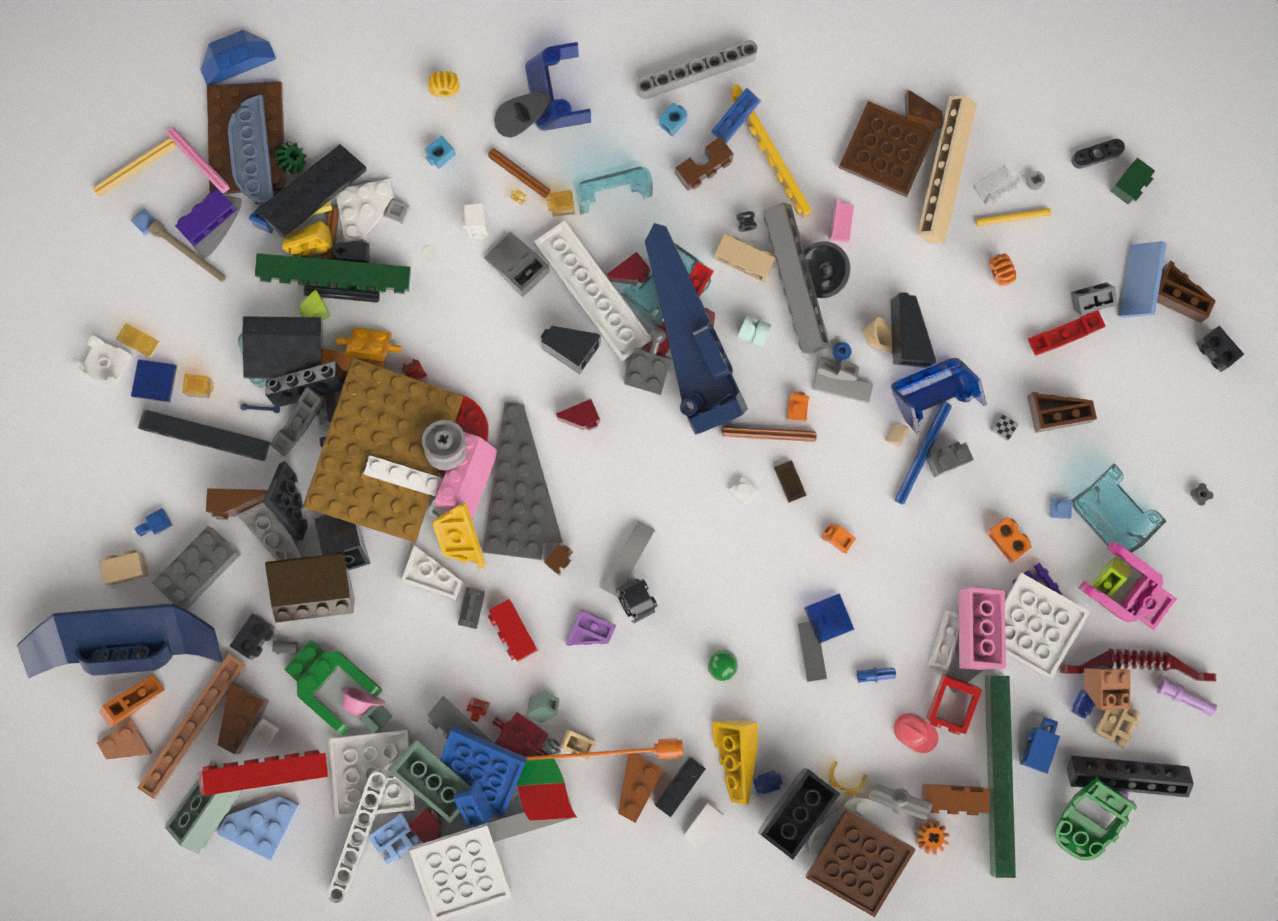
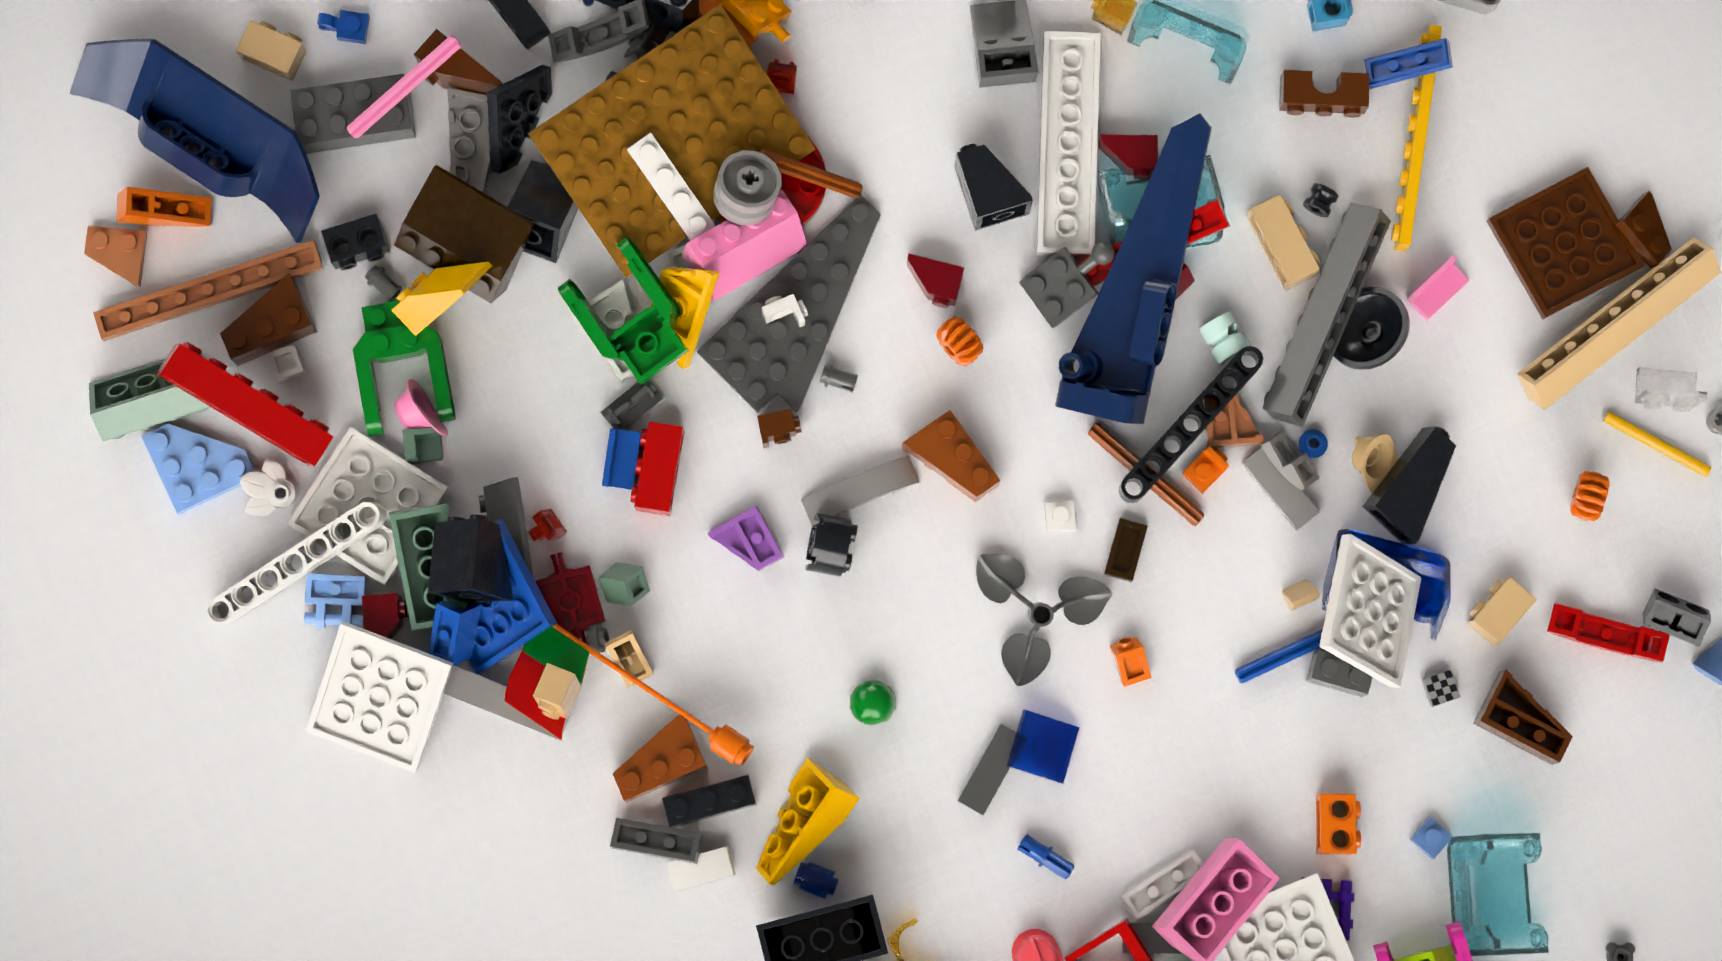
camera: 40 degrees right, 0 degrees up
(214, 533) = (404, 86): none -> bright pink axle
(307, 809) = (263, 488): none -> white plate
(320, 631) = (436, 293): none -> yellow slope
(453, 762) = (469, 561): none -> black slope
(454, 566) = (648, 339): none -> green plate
(473, 410) = (815, 175): none -> dark orange axle
(489, 640) = (621, 458): none -> blue panel
(509, 495) = (779, 307): none -> white bracket
(555, 795) = (556, 692): none -> tan brick
(570, 508) = (838, 378): none -> dark grey pin
(619, 439) = (959, 341): none -> orange gear
(663, 502) = (954, 456): none -> dark orange wedge
(668, 829) = (656, 840): none -> dark grey plate
(777, 381) = (1197, 412): none -> black beam
(782, 577) = (1024, 655): none -> dark grey plant
(789, 373) = (1231, 426): none -> nougat wing
(943, 415) = (1370, 611): none -> white plate
(1004, 363) = (1501, 610): none -> tan brick

